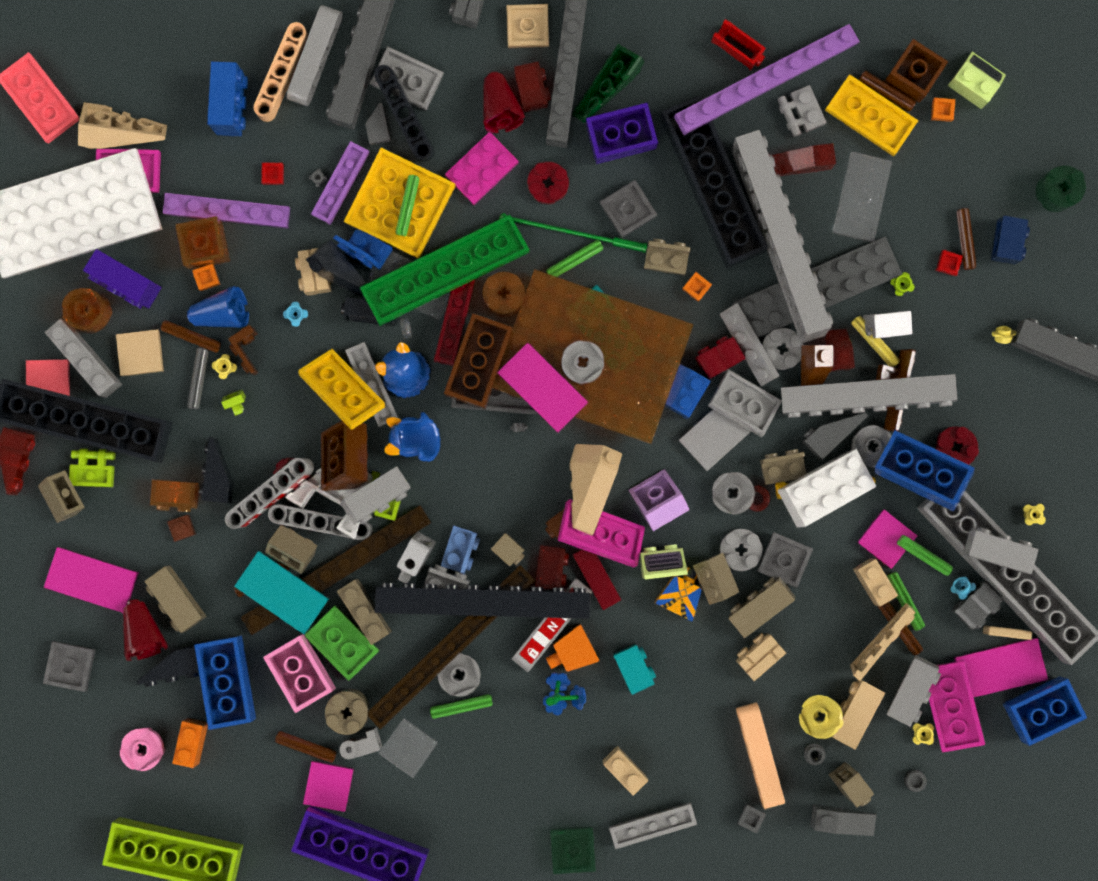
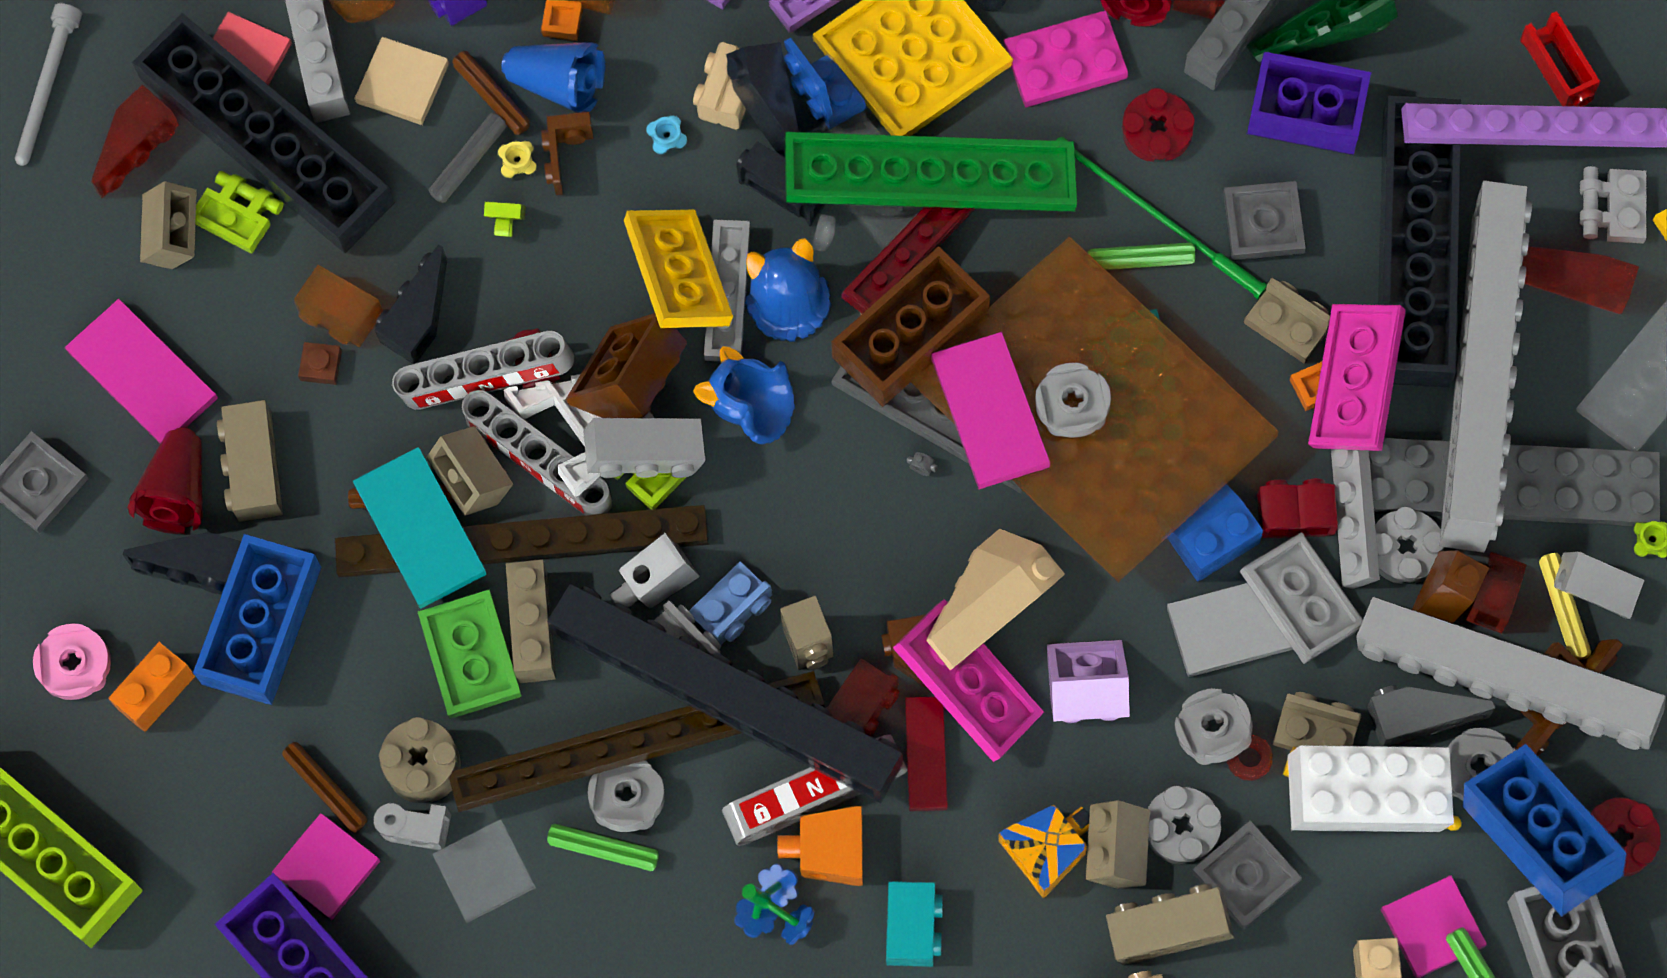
camera: 30 degrees right, 15 degrees down
(299, 673) = (379, 662): bright pink brick -> none
(407, 205) = (922, 54): bright green axle -> none
(495, 285) = (1000, 233): clear orange brick -> none
(662, 562) = (1042, 778): slope -> none
(719, 274) = (1357, 377): none -> dark pink tile

